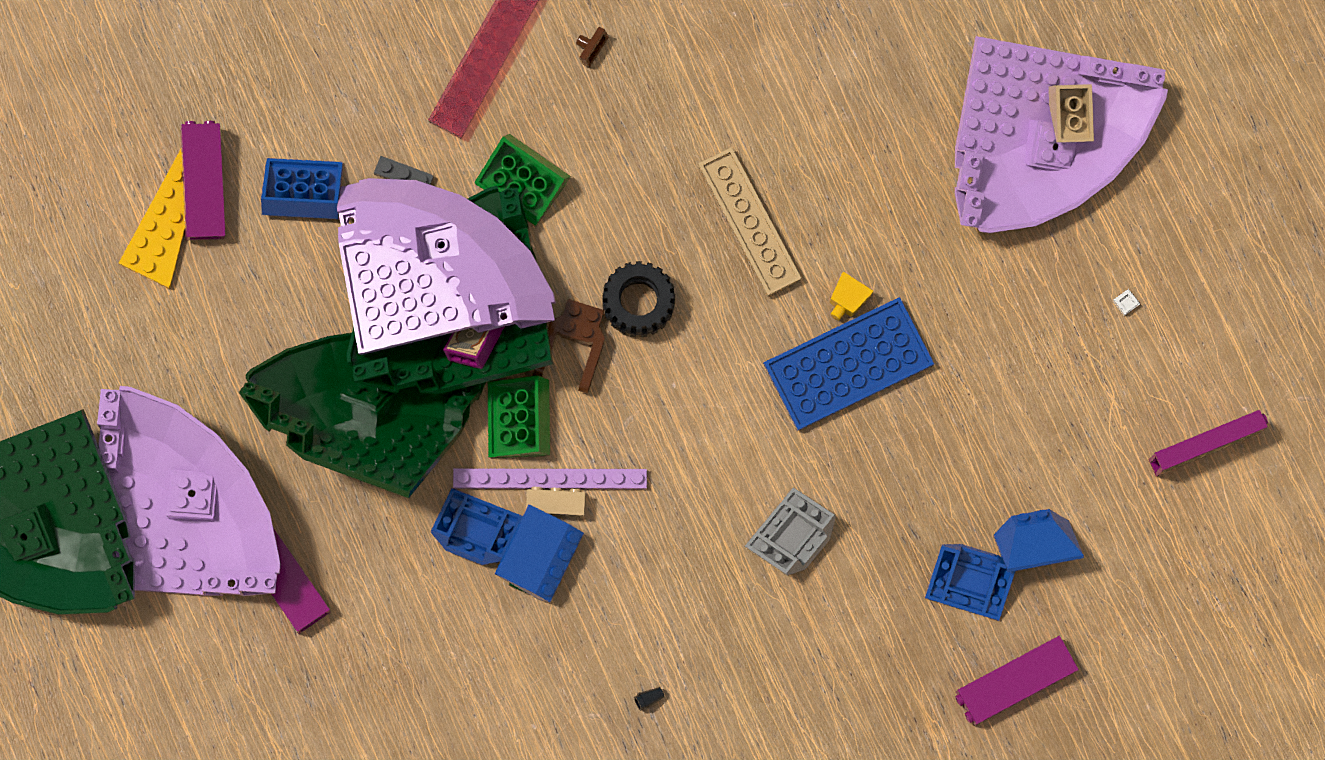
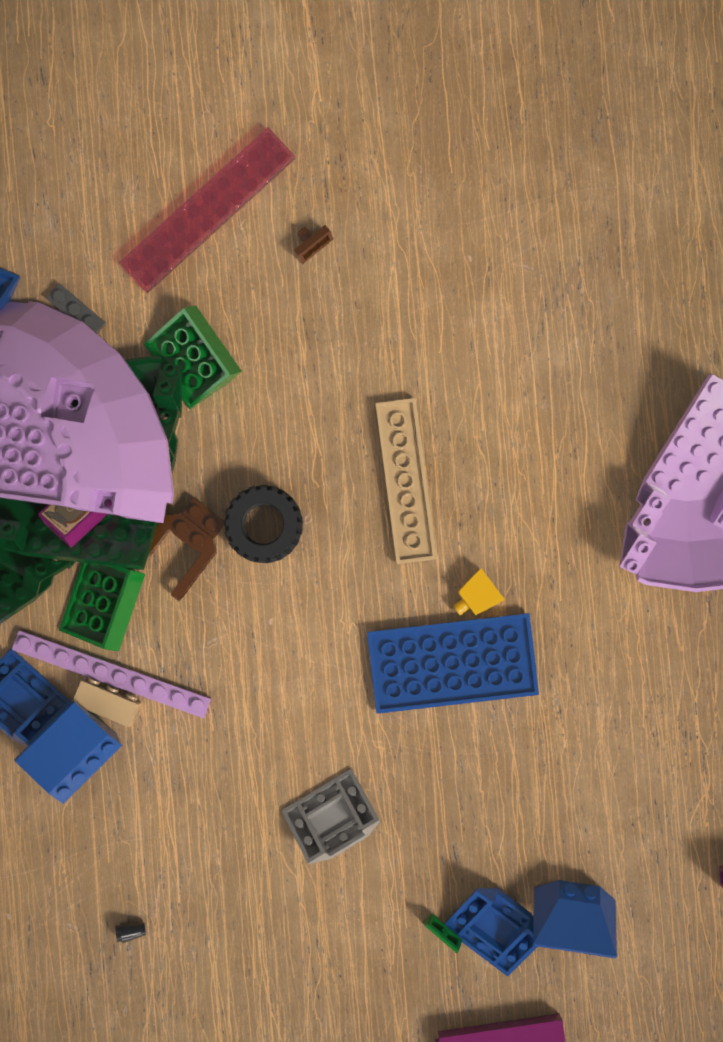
camera: 25 degrees right, 10 degrees up
(926, 601) = (443, 932): none -> green slope

